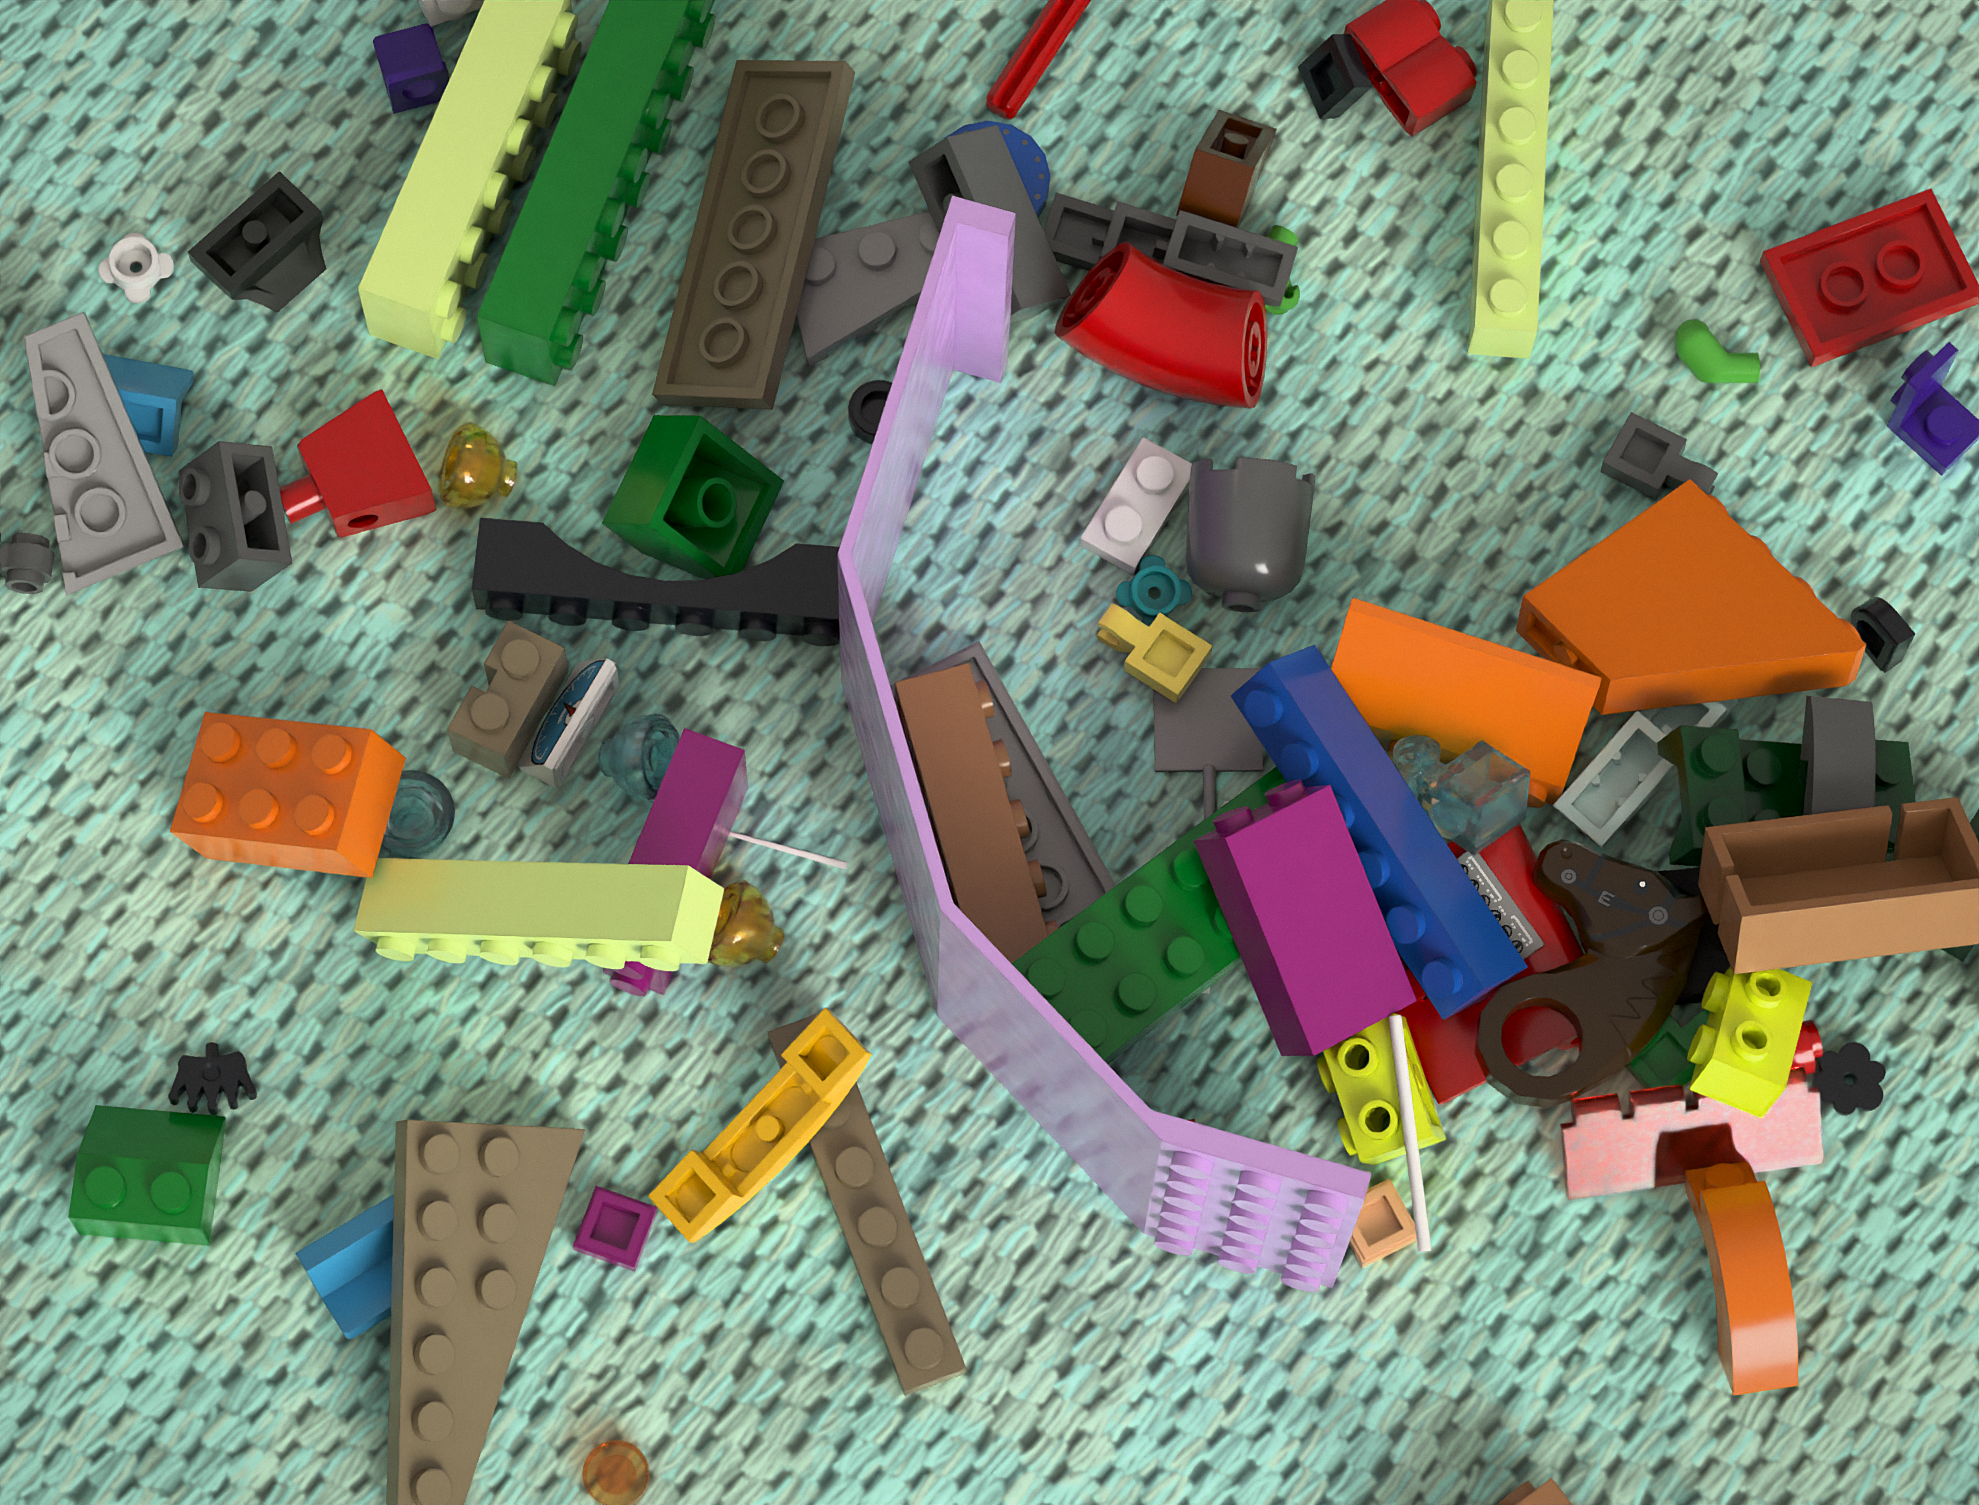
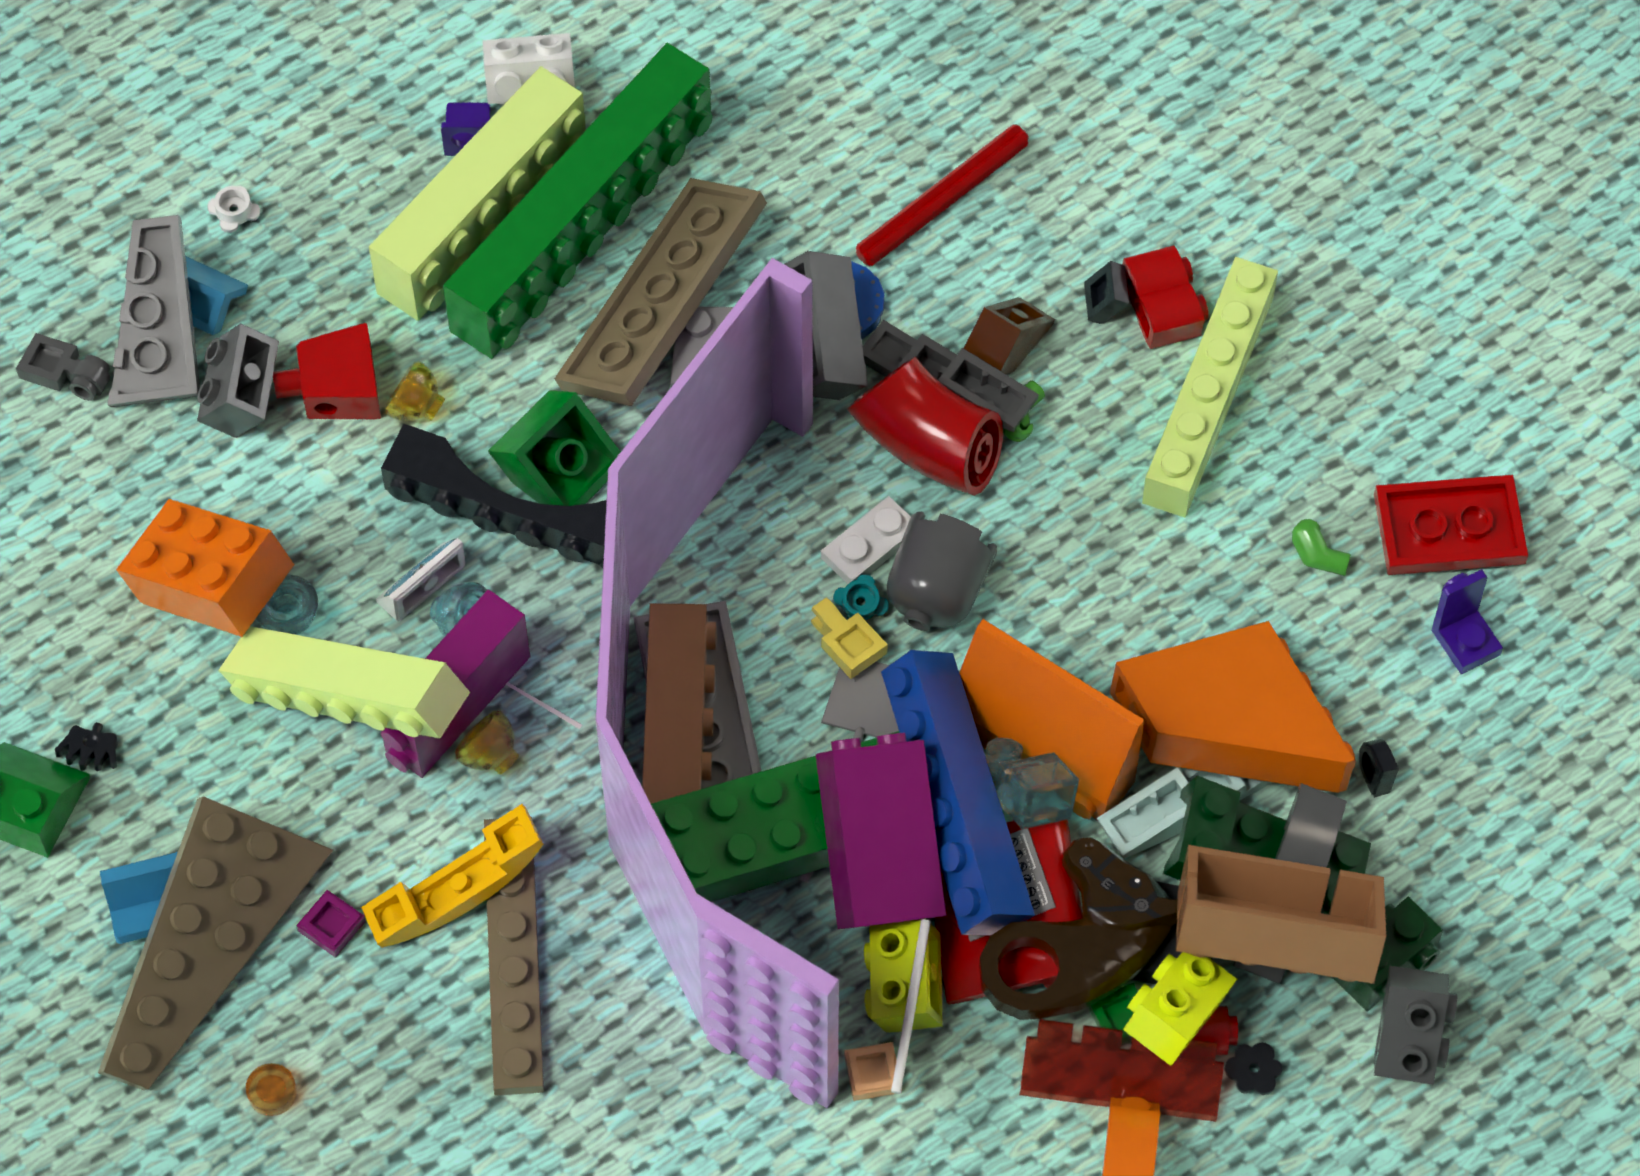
camera: 20 degrees right, 10 degrees down
(265, 246) = (324, 216): pearl dark grey slope -> none
(522, 682) = (376, 560): dark tan brick -> none
(1651, 457) = (1248, 602): dark grey plate -> none

